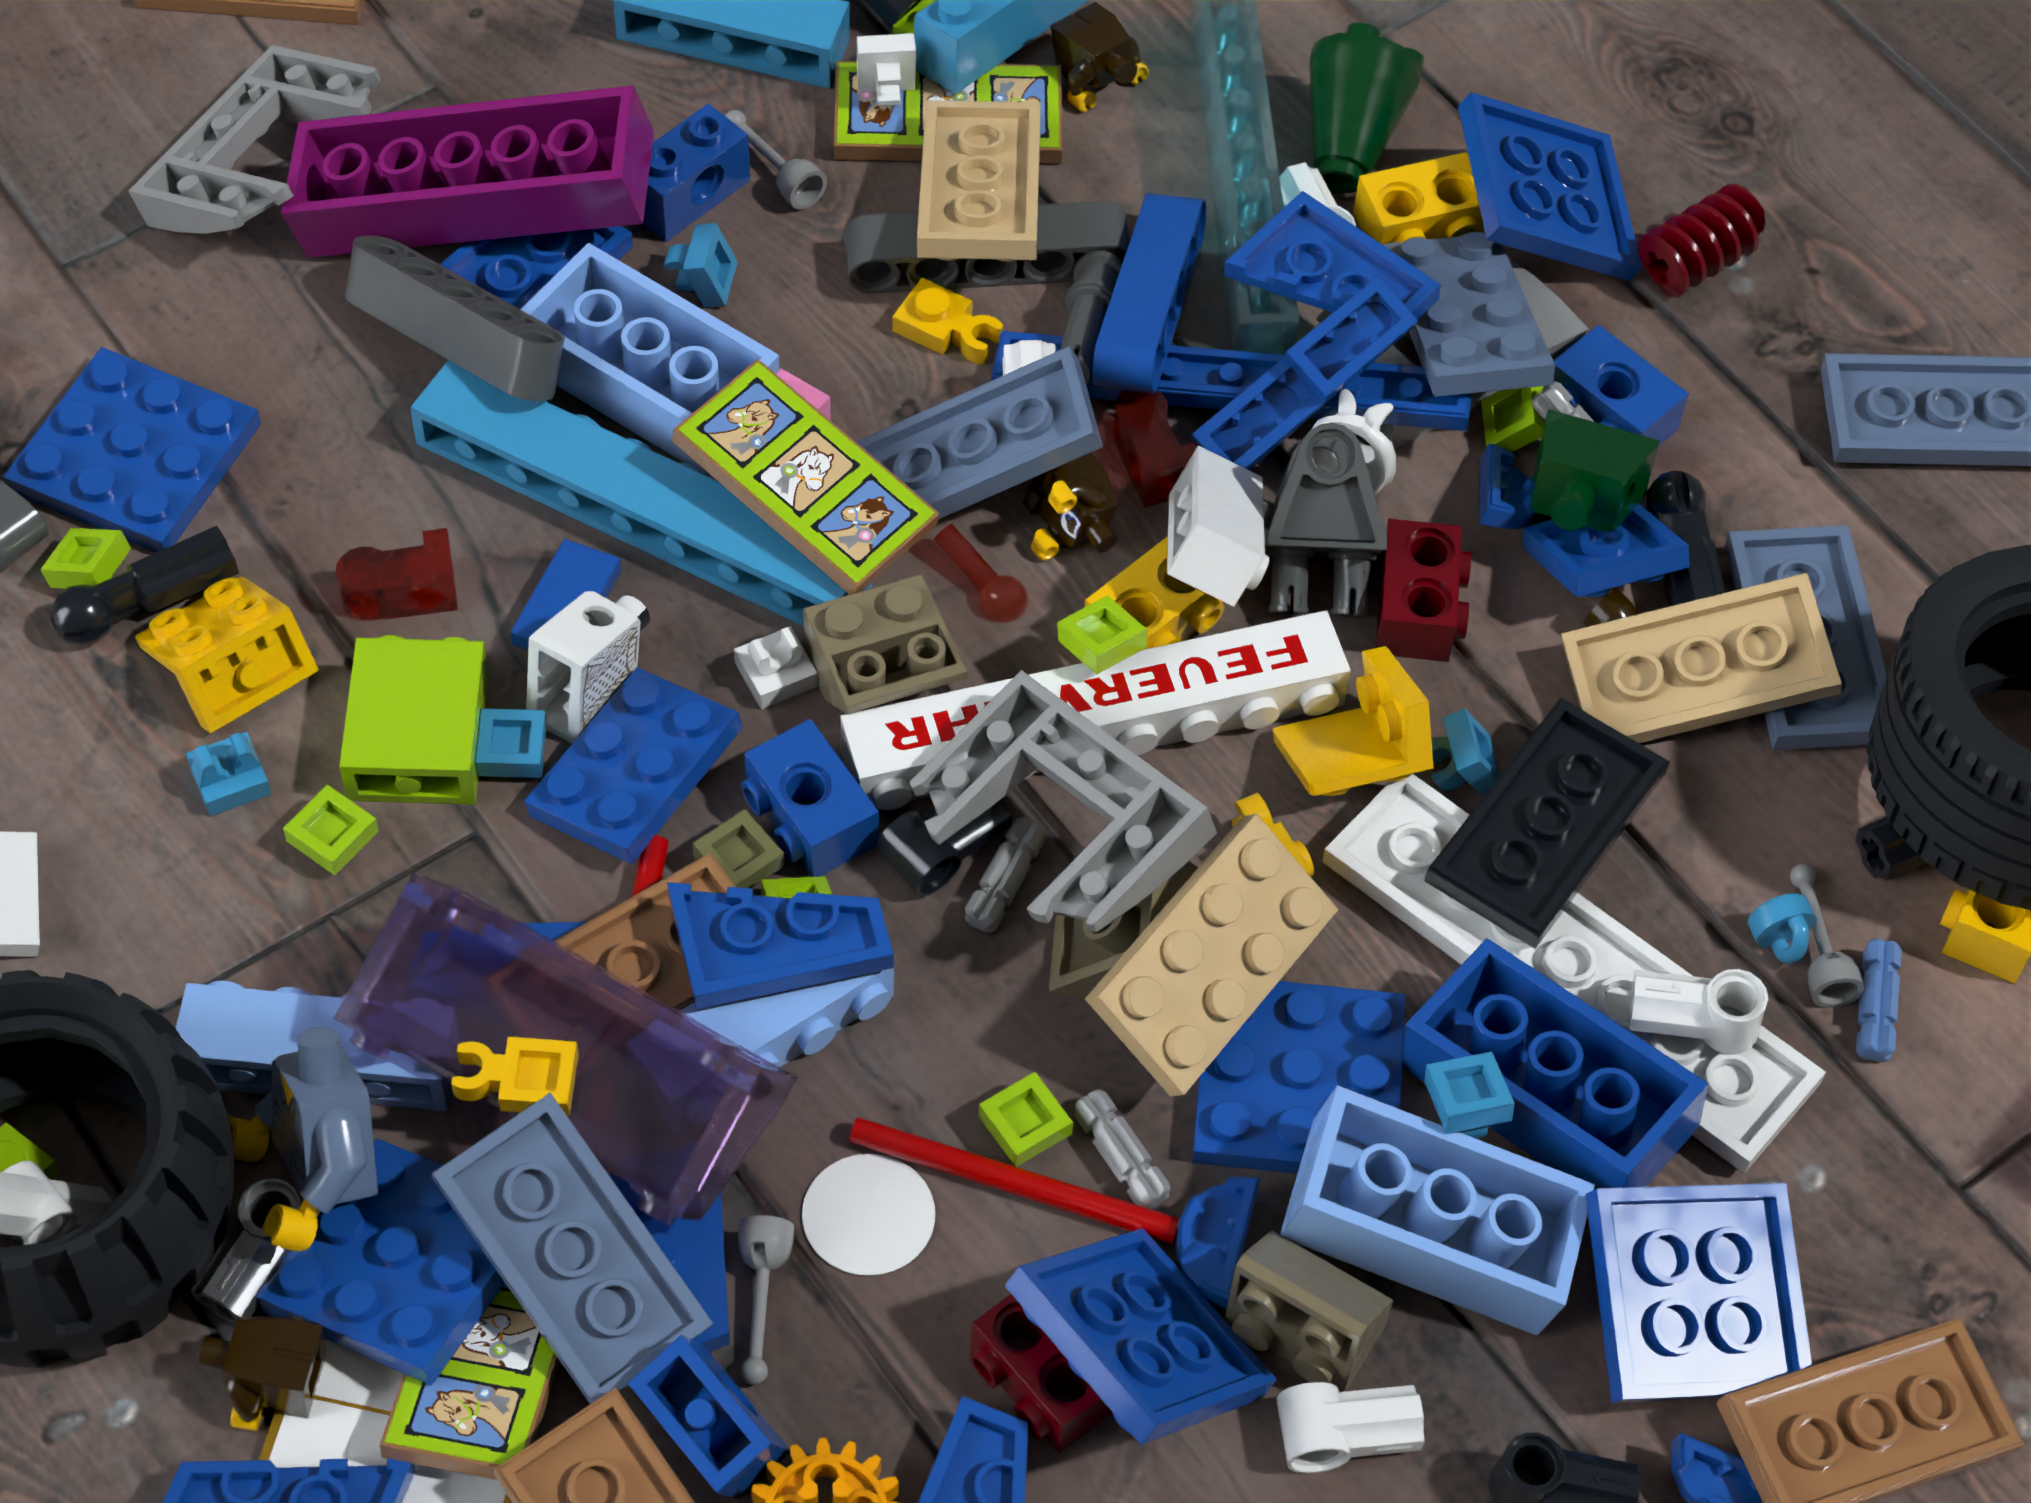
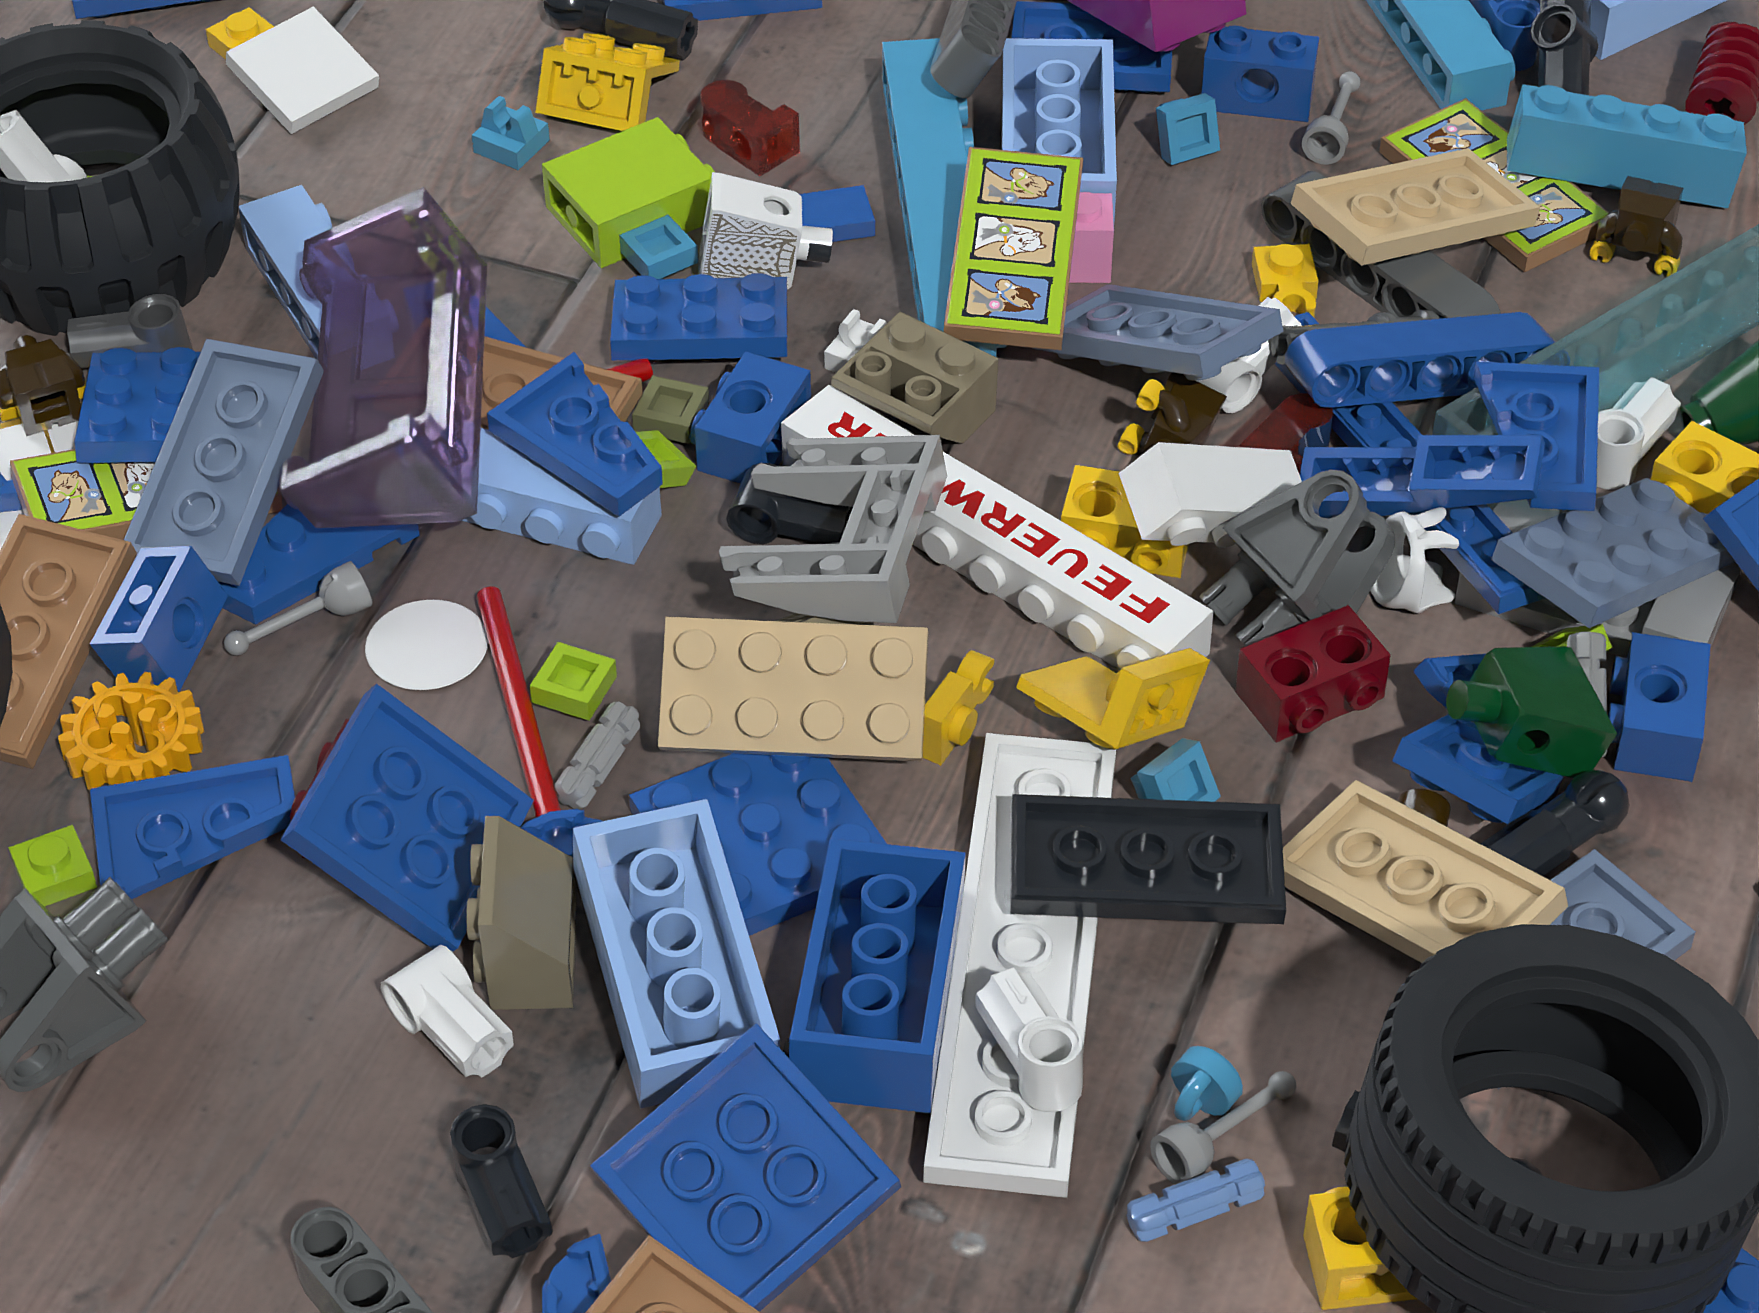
camera: 60 degrees right, 10 degrees down
(320, 1131) = (225, 292): sand blue torso -> none
(331, 829) = (503, 202): lime plate -> none
(521, 1075) = (348, 362): yellow plate -> none
(886, 66) = (1477, 113): white tile -> none
(1001, 596) = (1059, 441): clear red bar -> none
(1102, 634) = (1037, 479): lime plate -> none
(1469, 1094) = (777, 895): dark azure tile -> none

